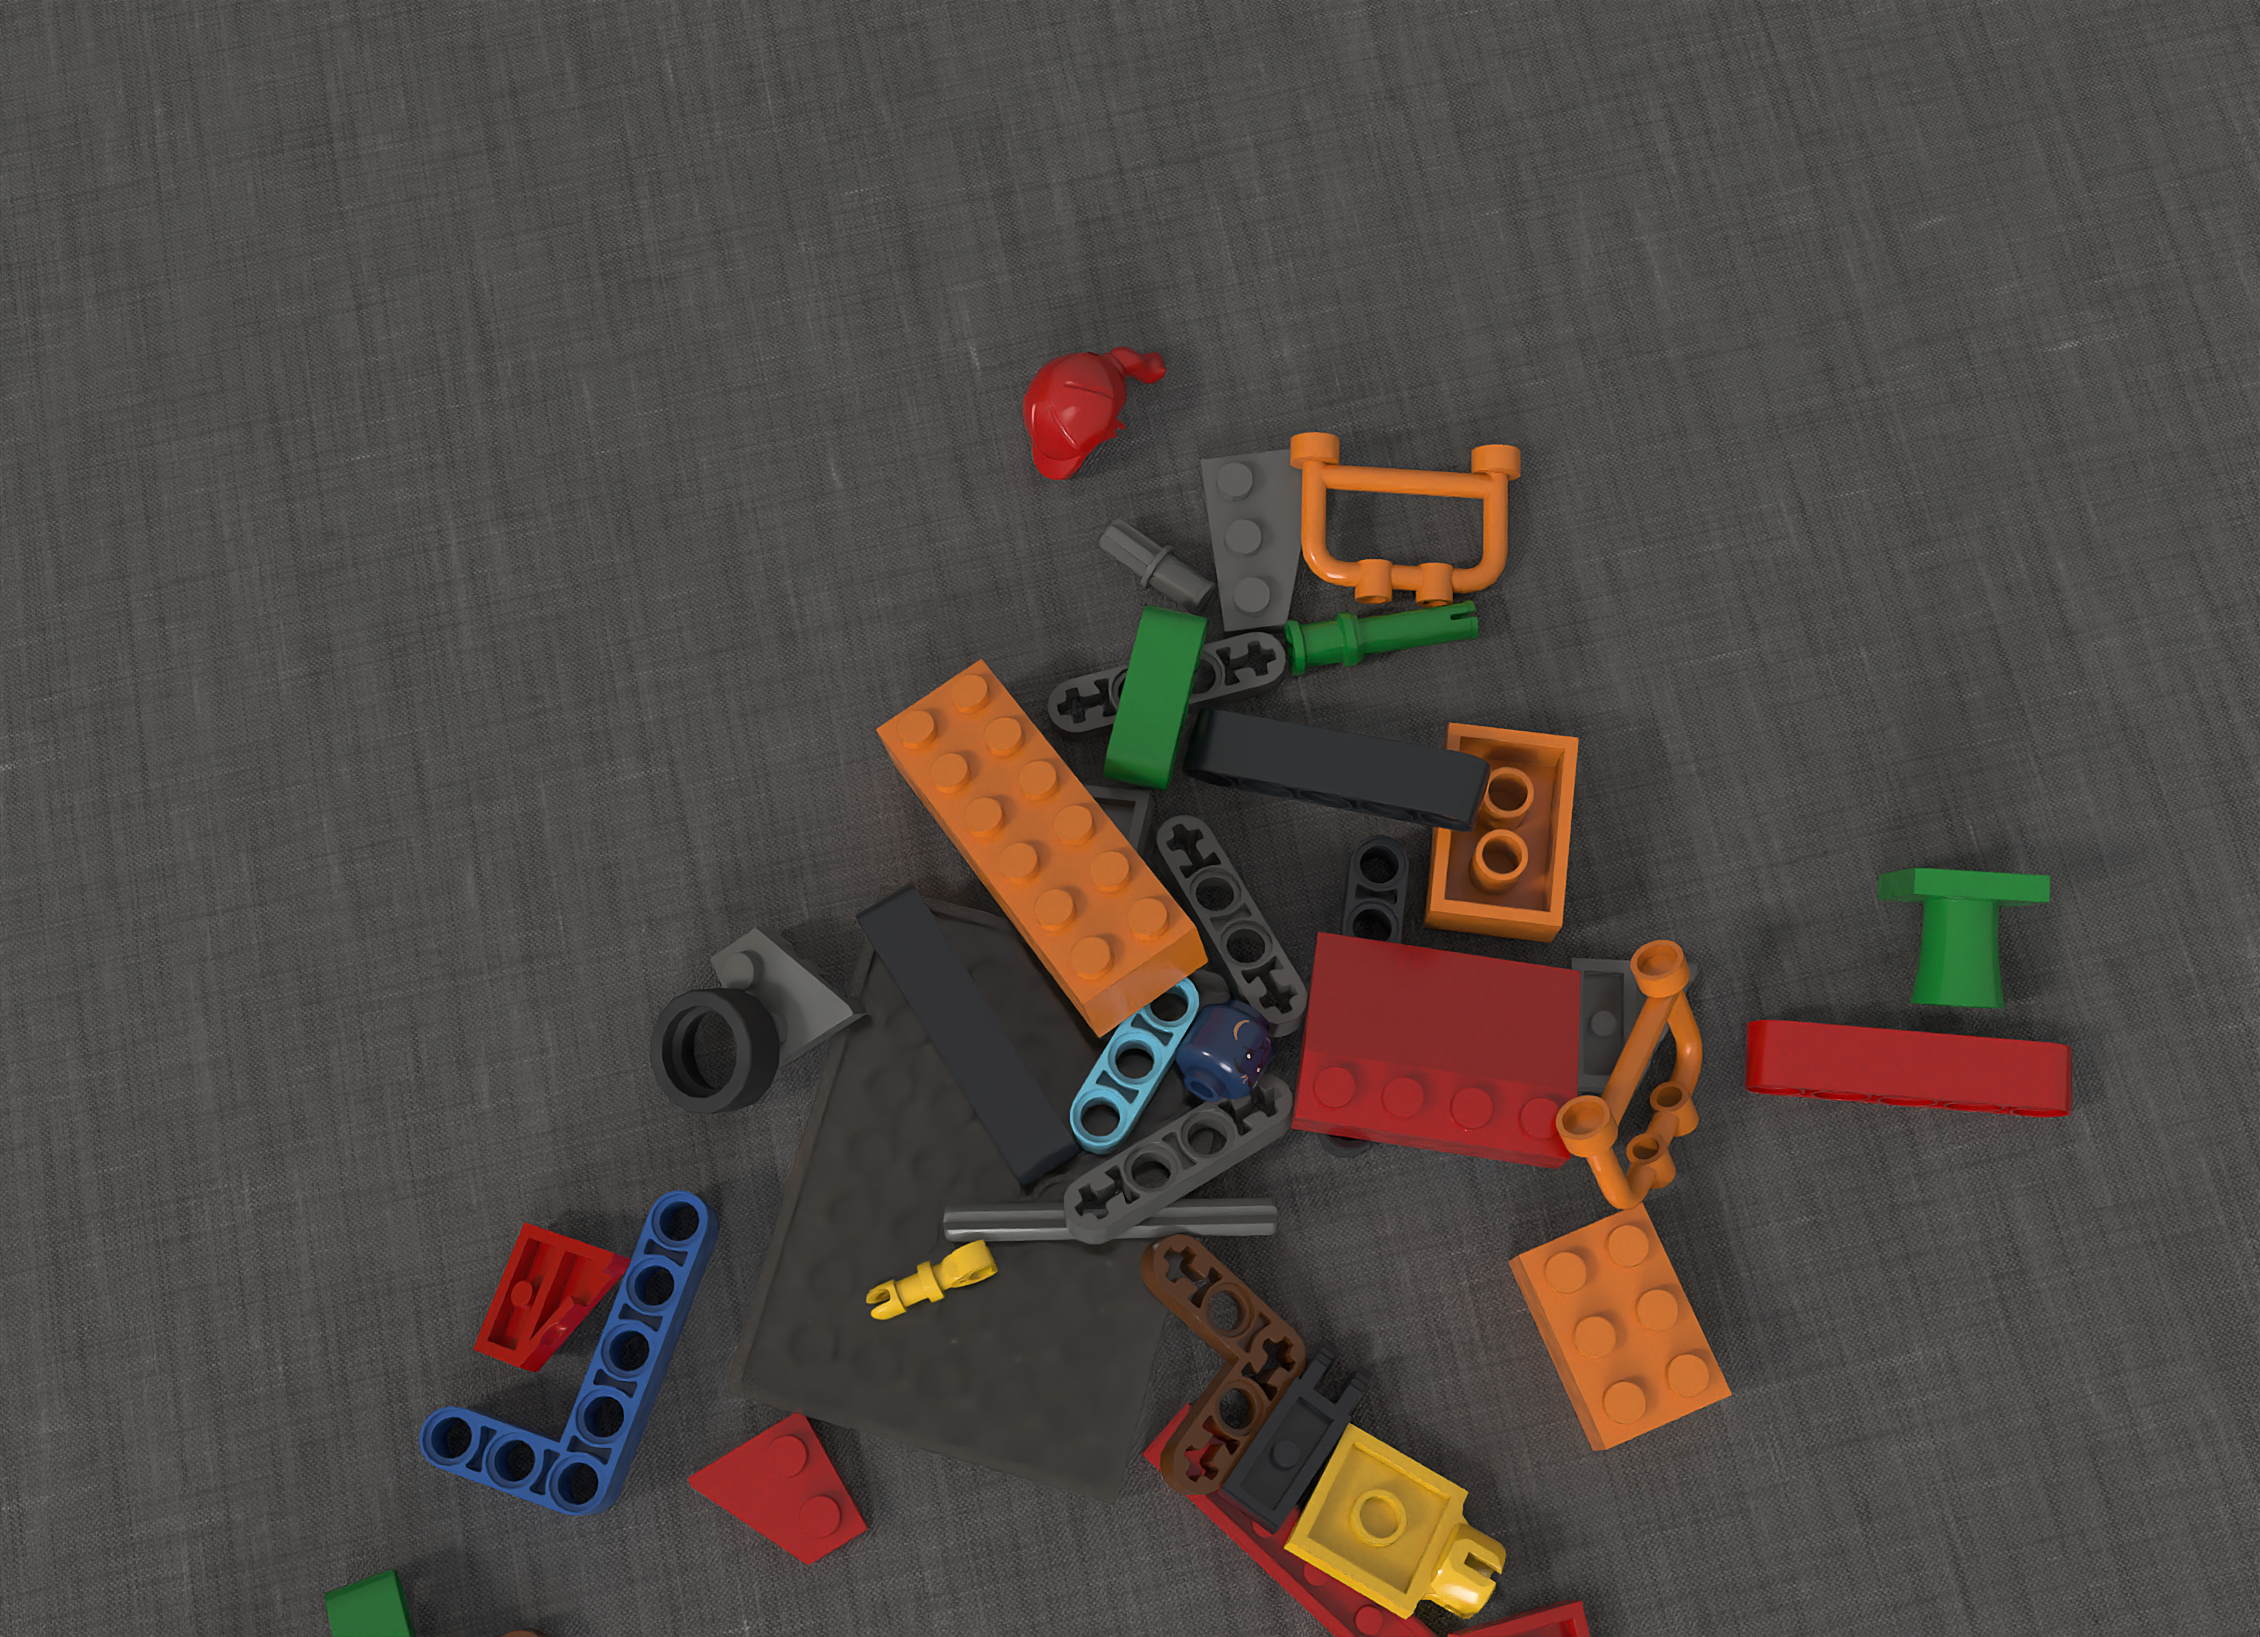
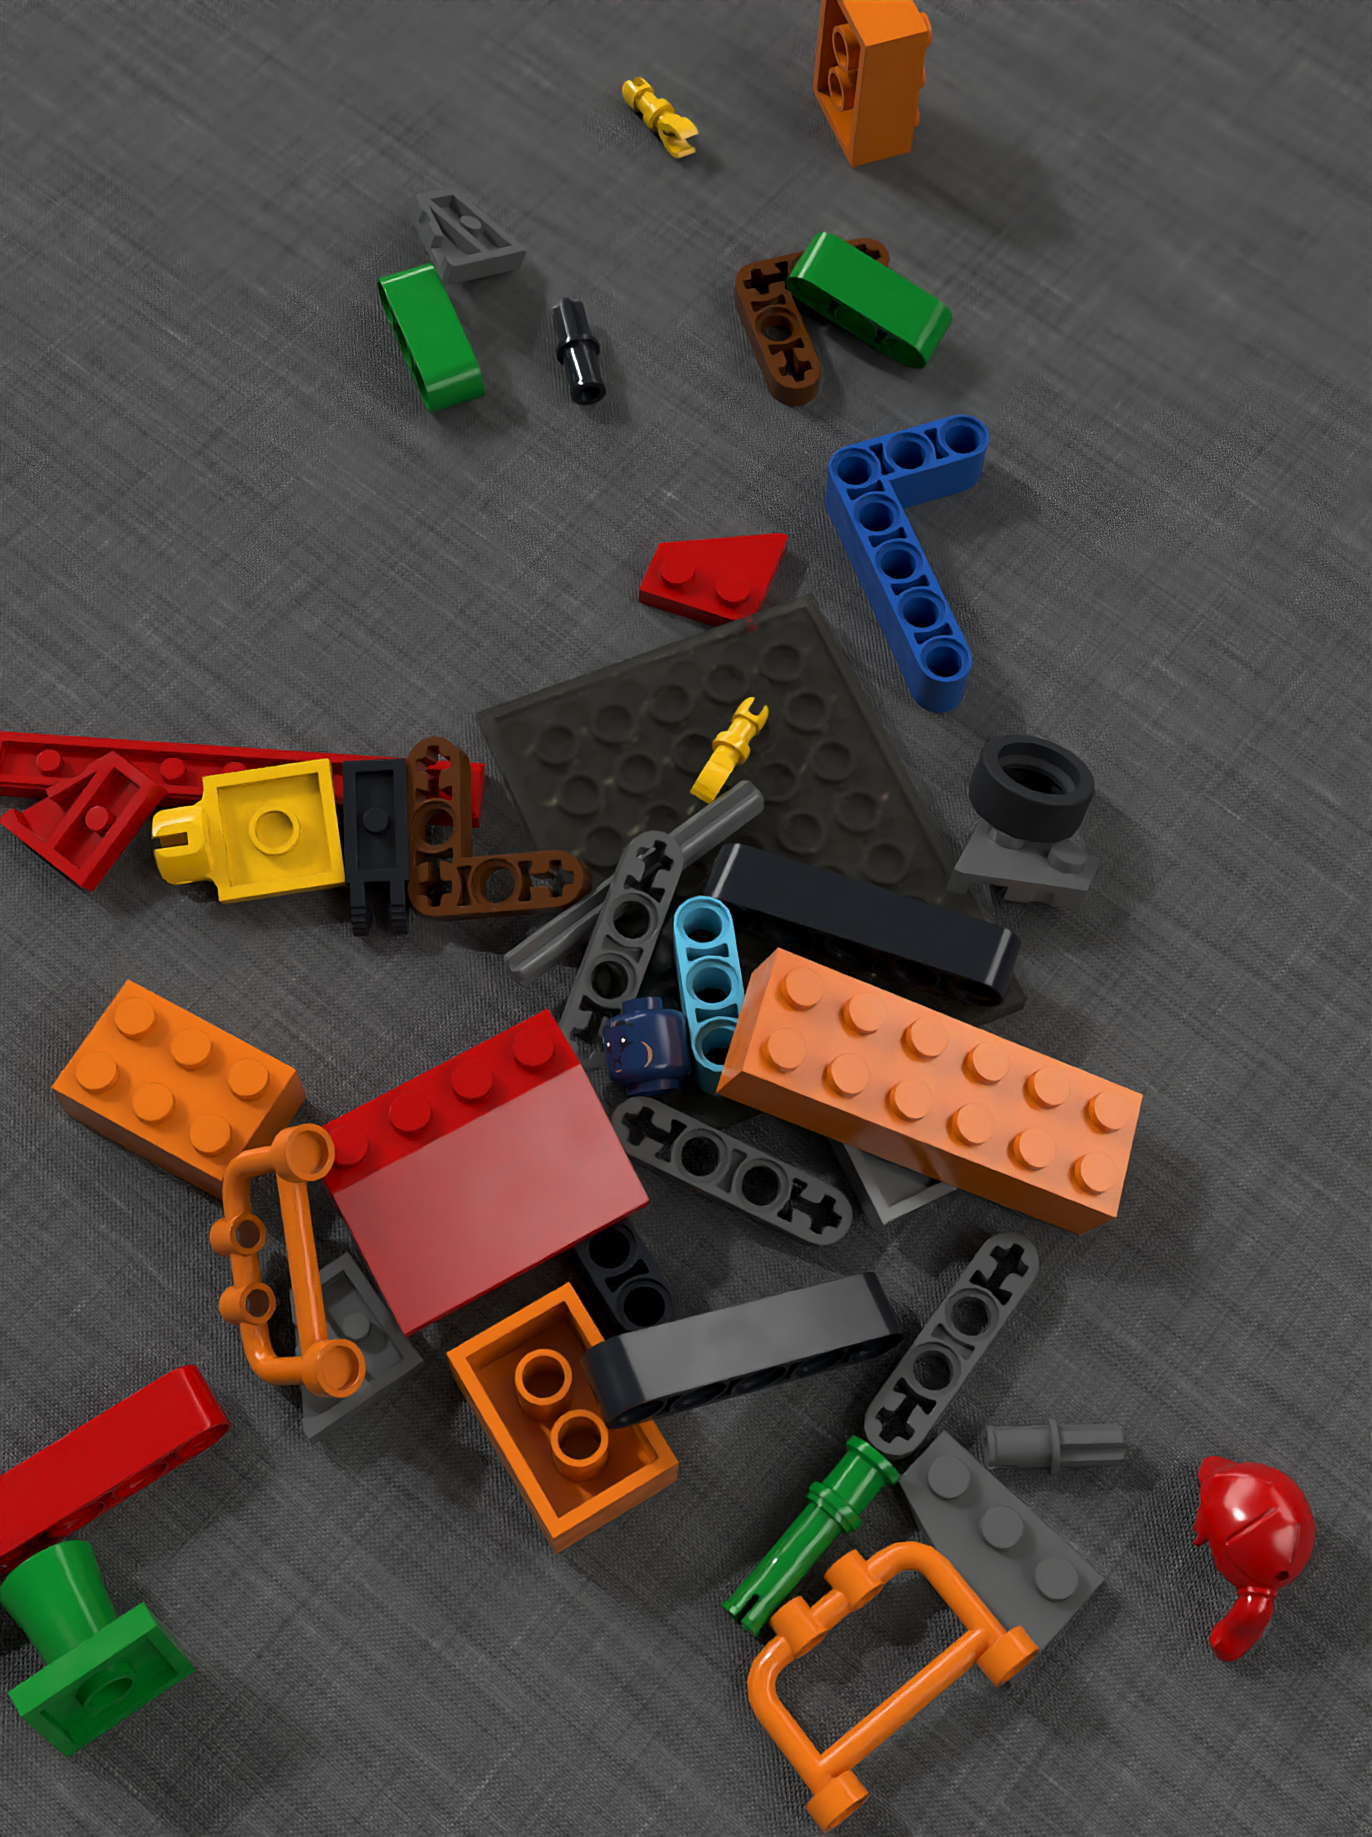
camera: 135 degrees right, 10 degrees down
(545, 1296) = (990, 565): red wing -> none
(1155, 697) = (948, 1305): green beam -> none

